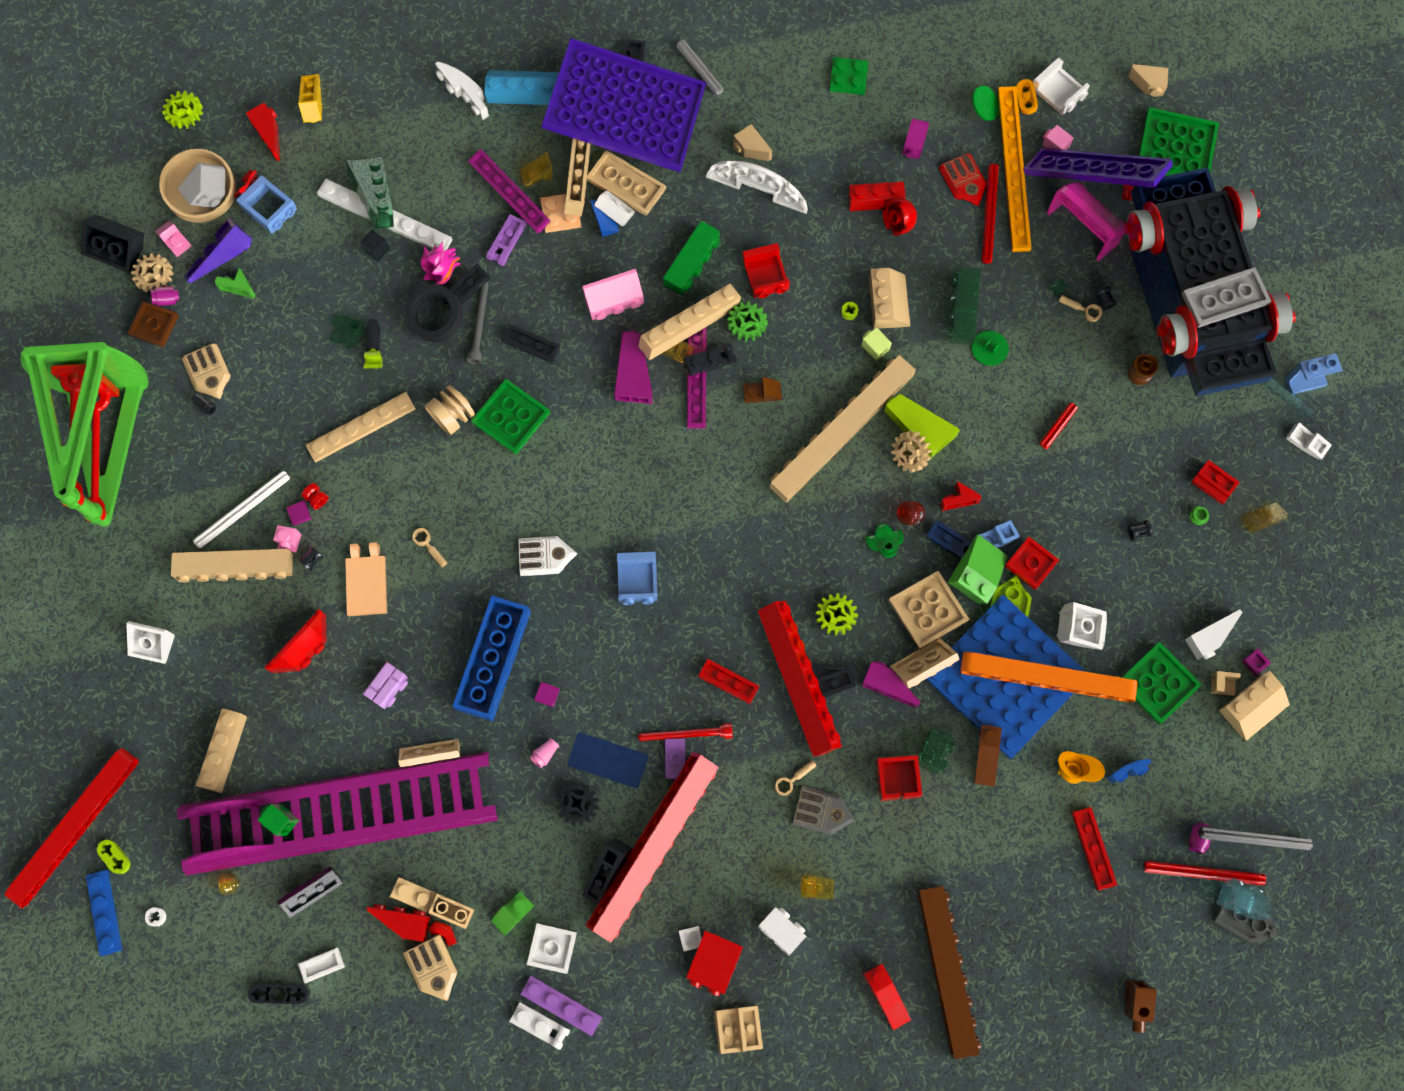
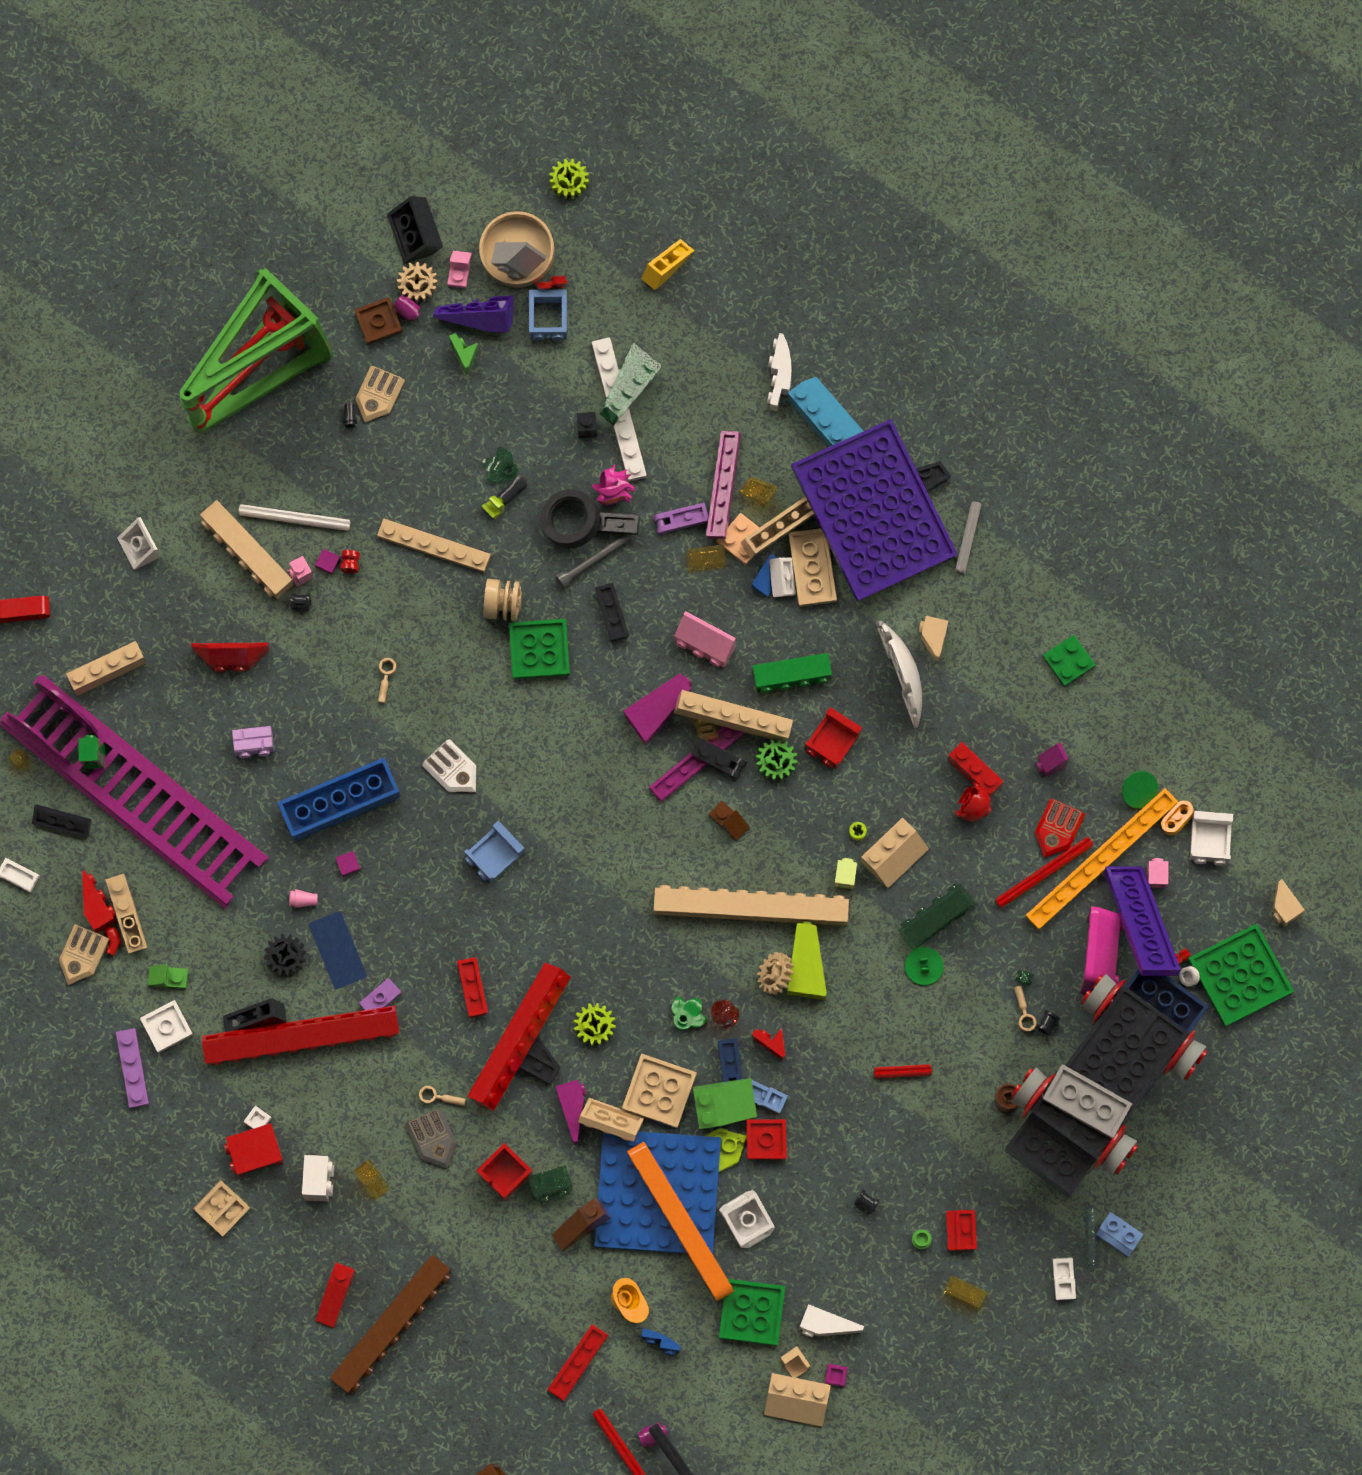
camera: 50 degrees right, 0 degrees up
(266, 126) = (611, 254): red slope -> none
(366, 582) = (318, 657): light nougat tile -> none
(429, 753) = (231, 816): tan plate -> none
(539, 1025) = (105, 1064): white plate -> none
(551, 247) = (706, 558): none -> clear yellow slope
(724, 730) = (431, 1015): red piece -> none

